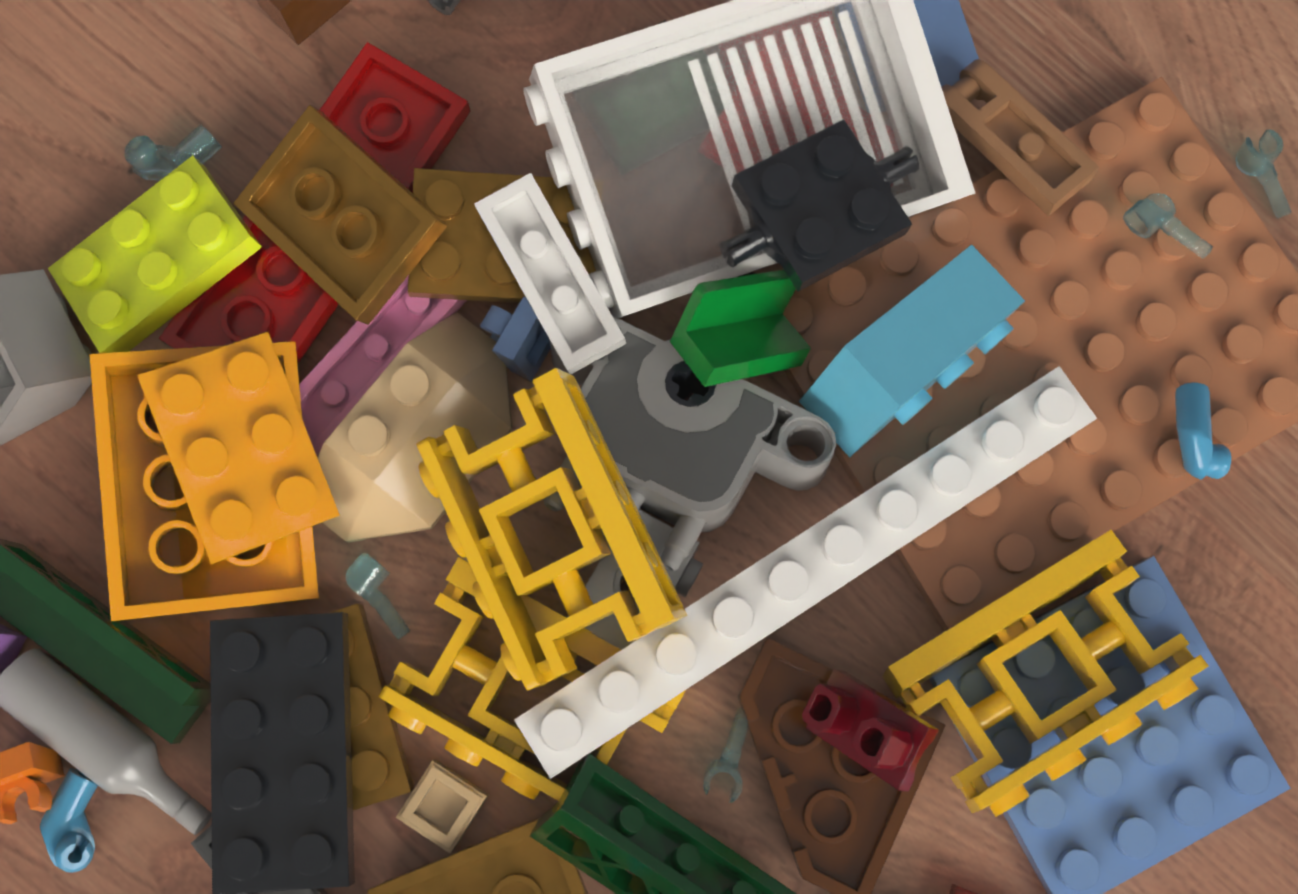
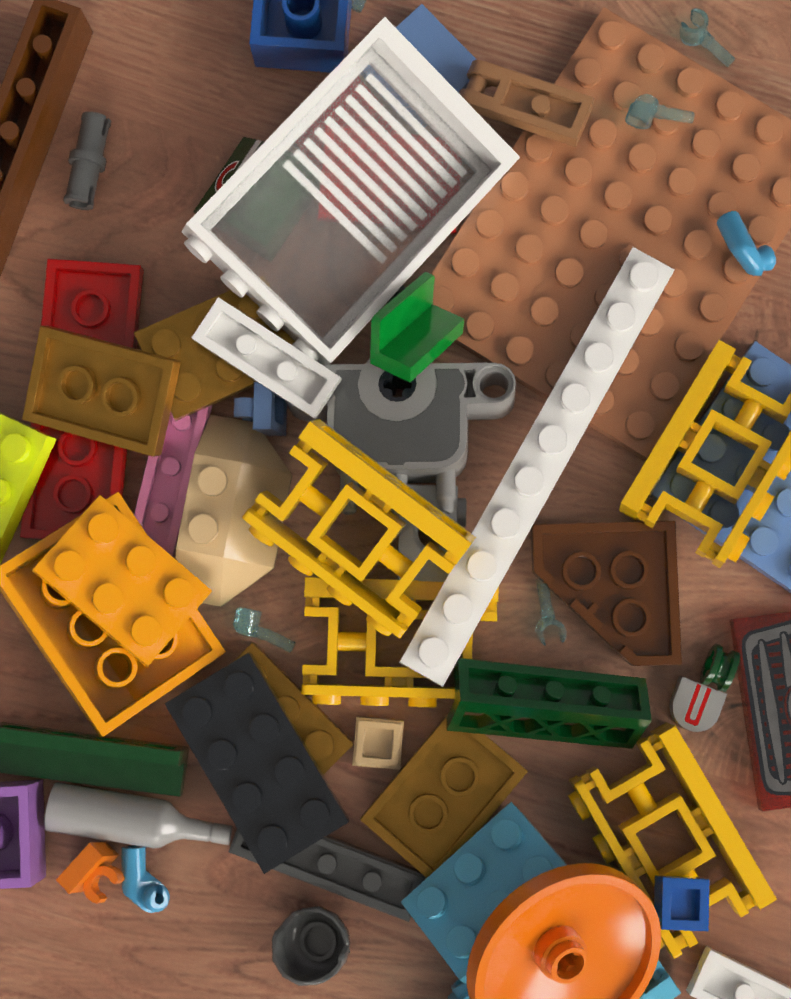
camera: 25 degrees left, 5 degrees up
(820, 205) = (422, 220): black plate -> none
(869, 728) = (627, 548): dark red hips -> none
(911, 348) = (533, 285): medium azure wedge -> none

